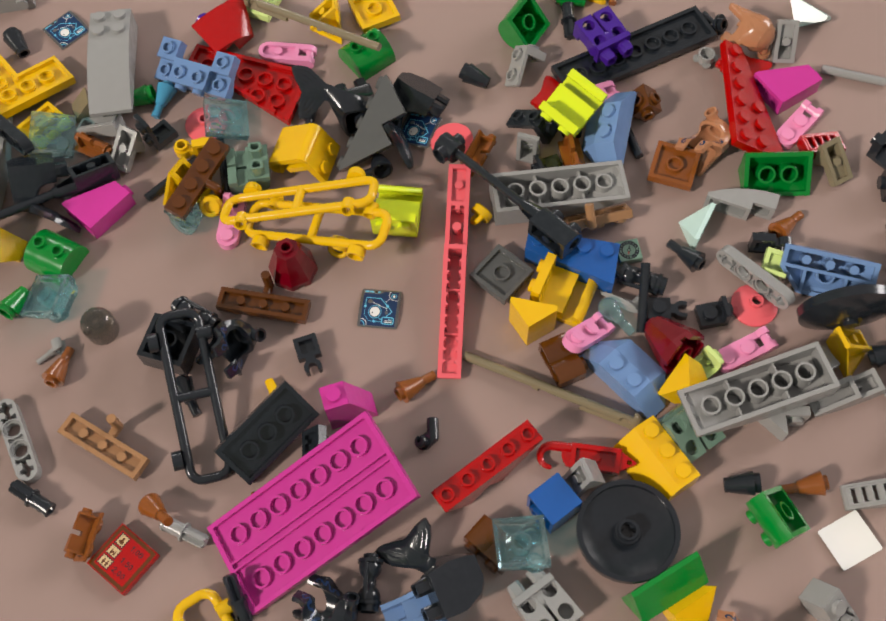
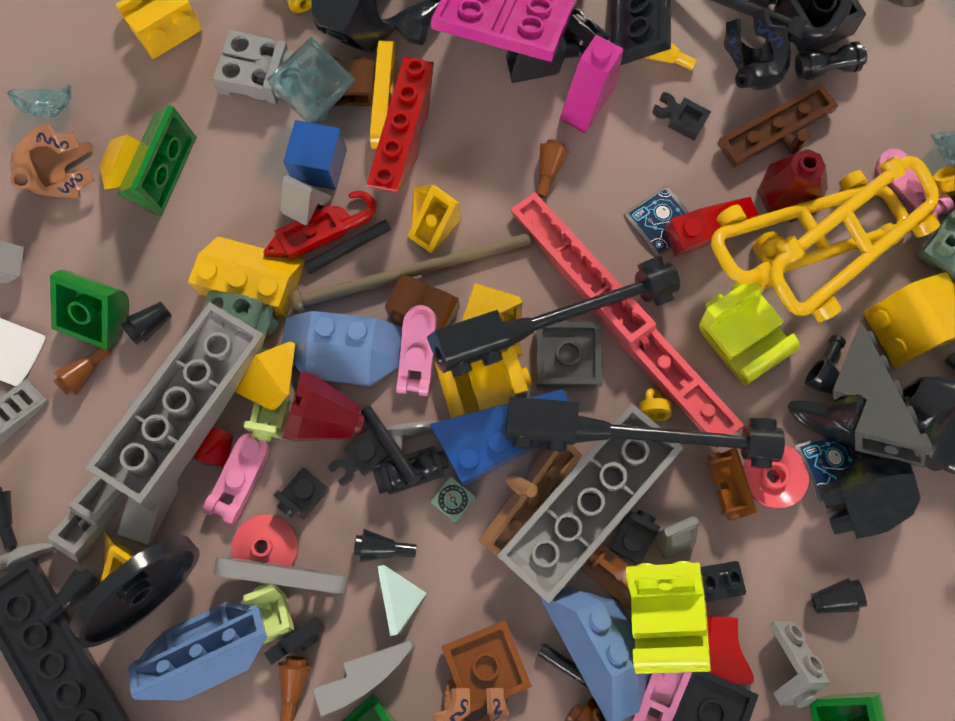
camera: 140 degrees right, 10 degrees up
(360, 278) = (697, 227): none -> red slope
(430, 437) = (489, 133): black arm -> none
(483, 506) = (382, 89): none -> yellow beam
(512, 408) = (432, 216): none -> yellow slope
(550, 287) = (487, 336): none -> black bar
(577, 436) = (347, 246): none -> black bar
(610, 309) = (416, 406): clear light blue piece -> none
(628, 531) = (224, 183): black dish -> none

